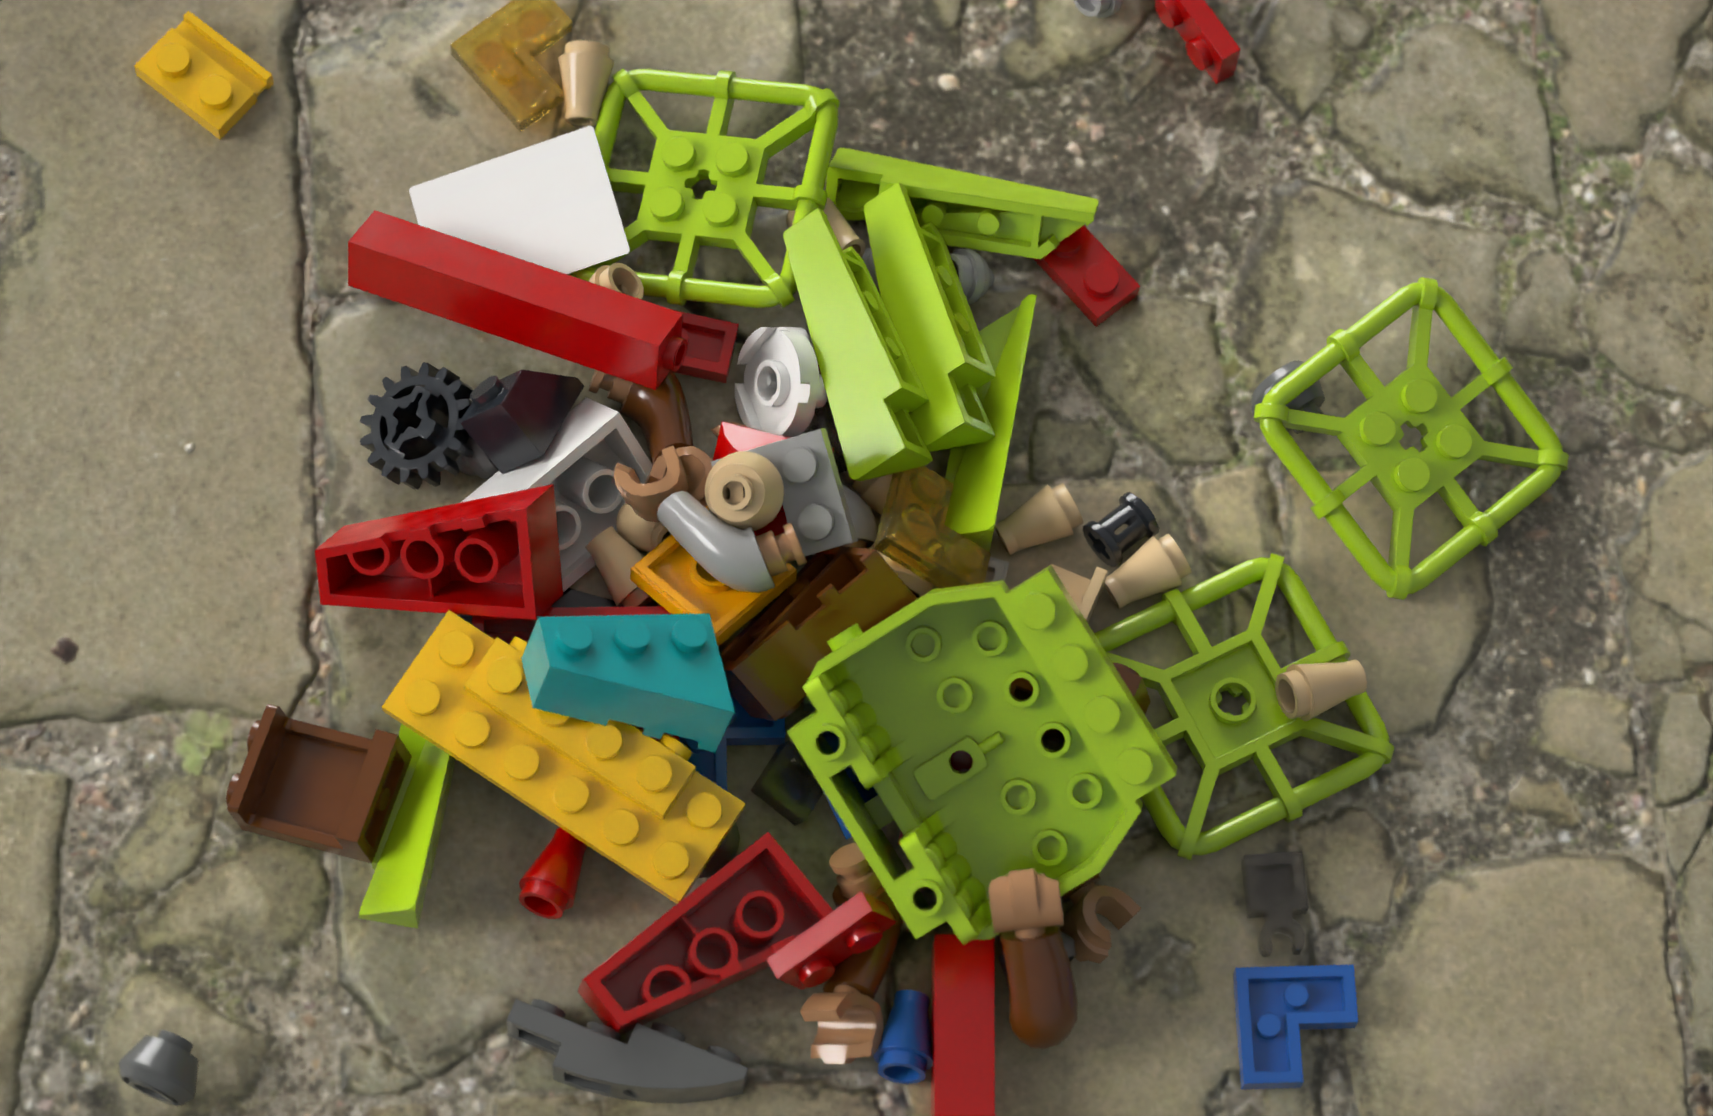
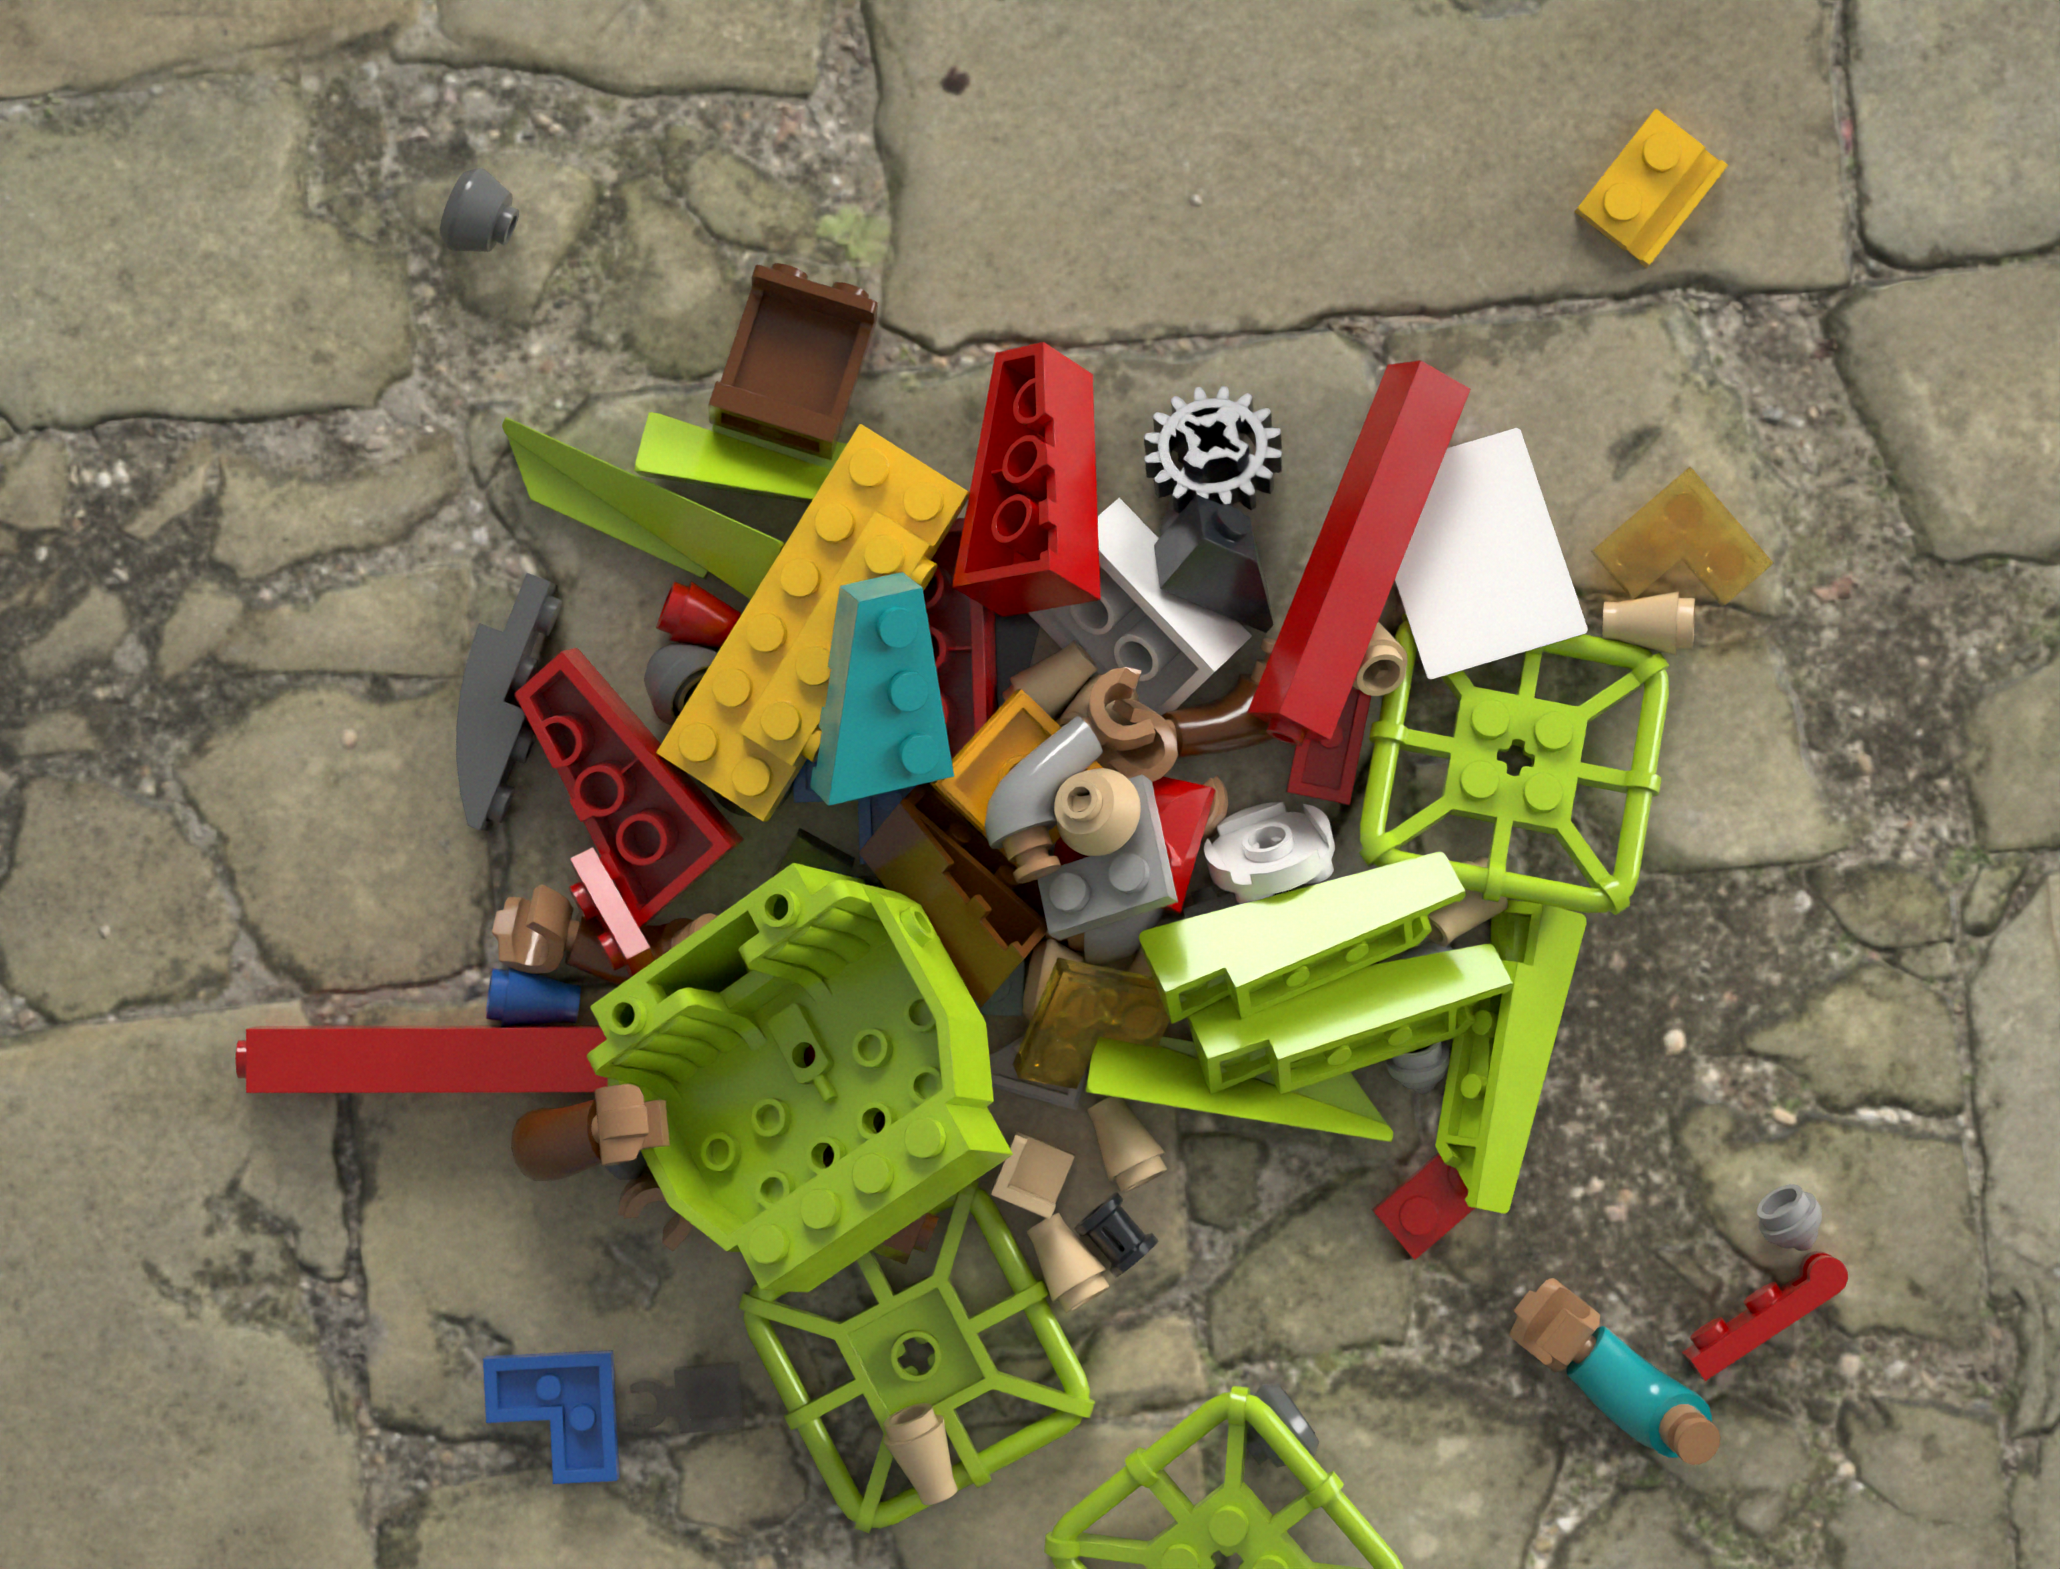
camera: 100 degrees right, 20 degrees up
(452, 922) = (640, 511): none -> lime wedge
(610, 893) = (673, 677): none -> dark grey cone
(1249, 119) = (1618, 1381): none -> piece

